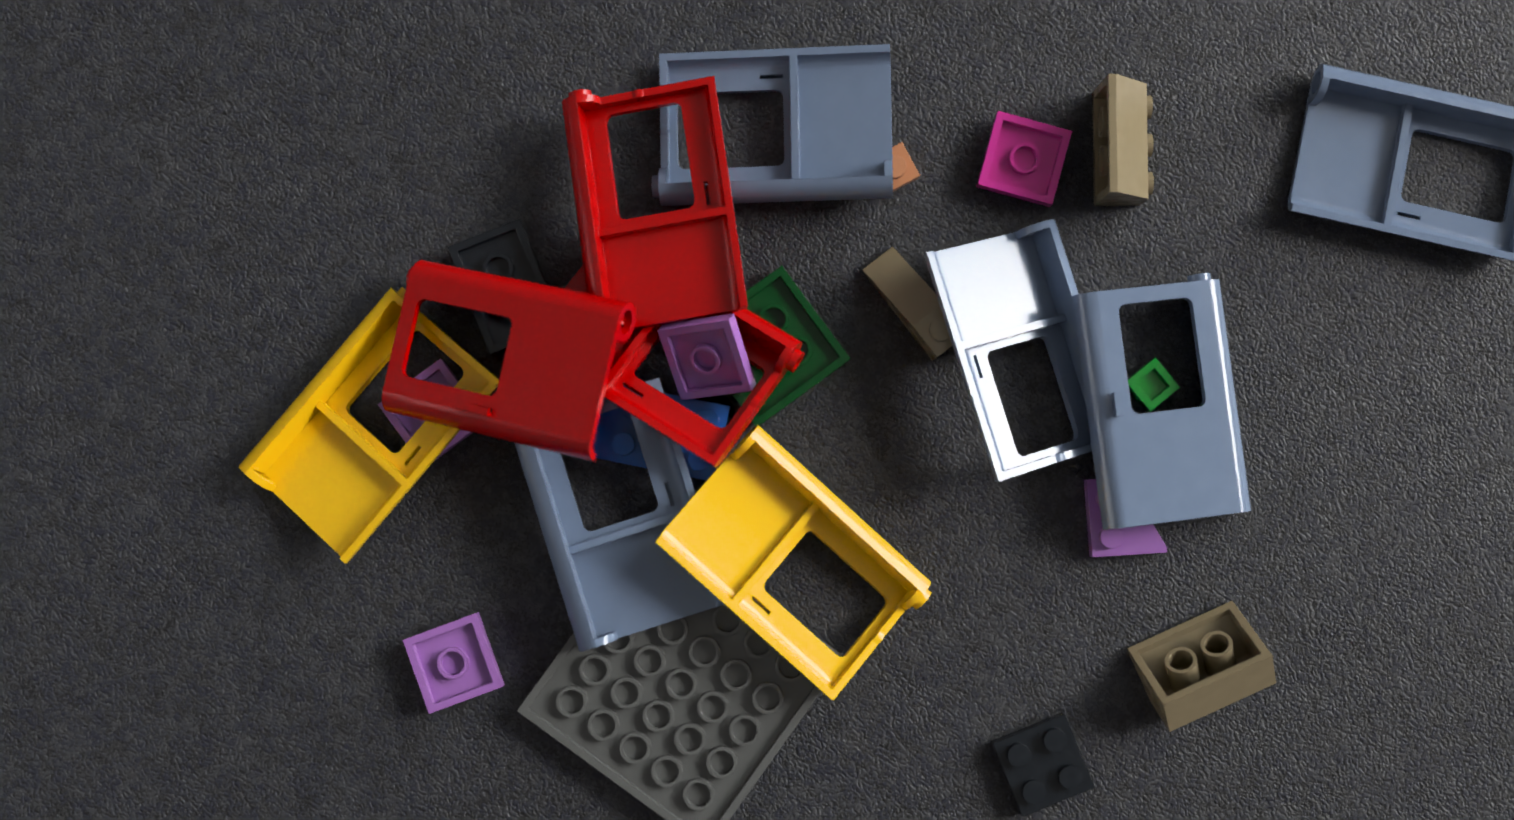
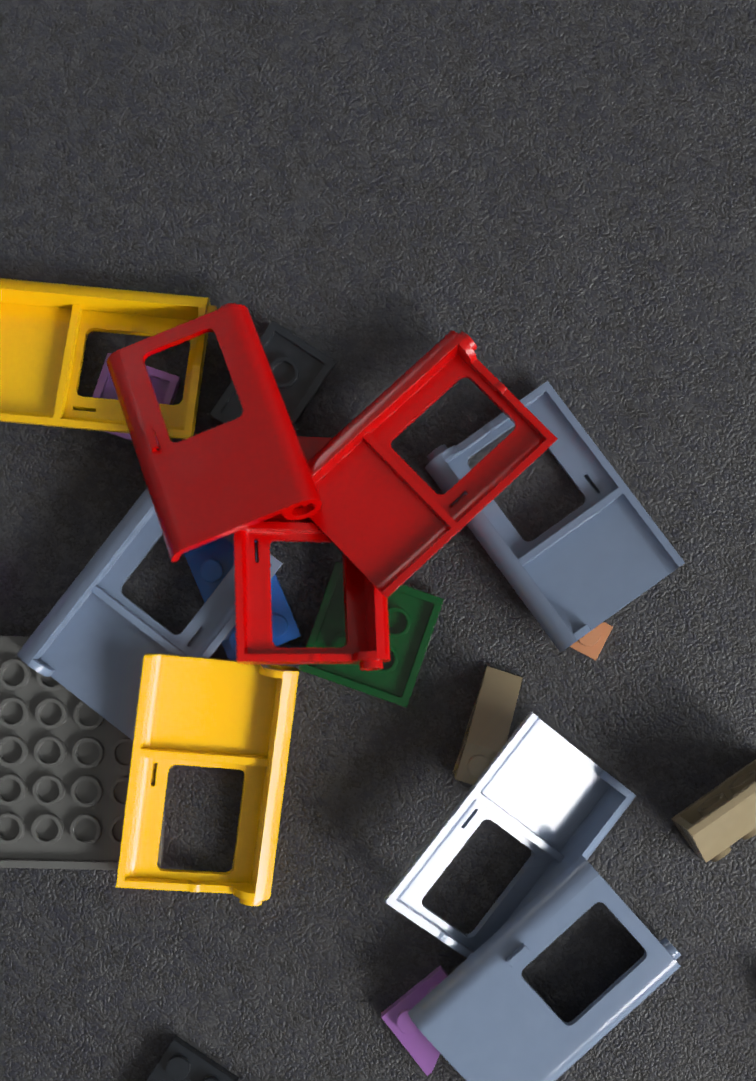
camera: 50 degrees right, 0 degrees up
(707, 357) = (325, 591): medium lavender plate -> none
(1024, 159) = (668, 736): dark pink plate -> none
(1151, 385) = (556, 969): green plate -> none

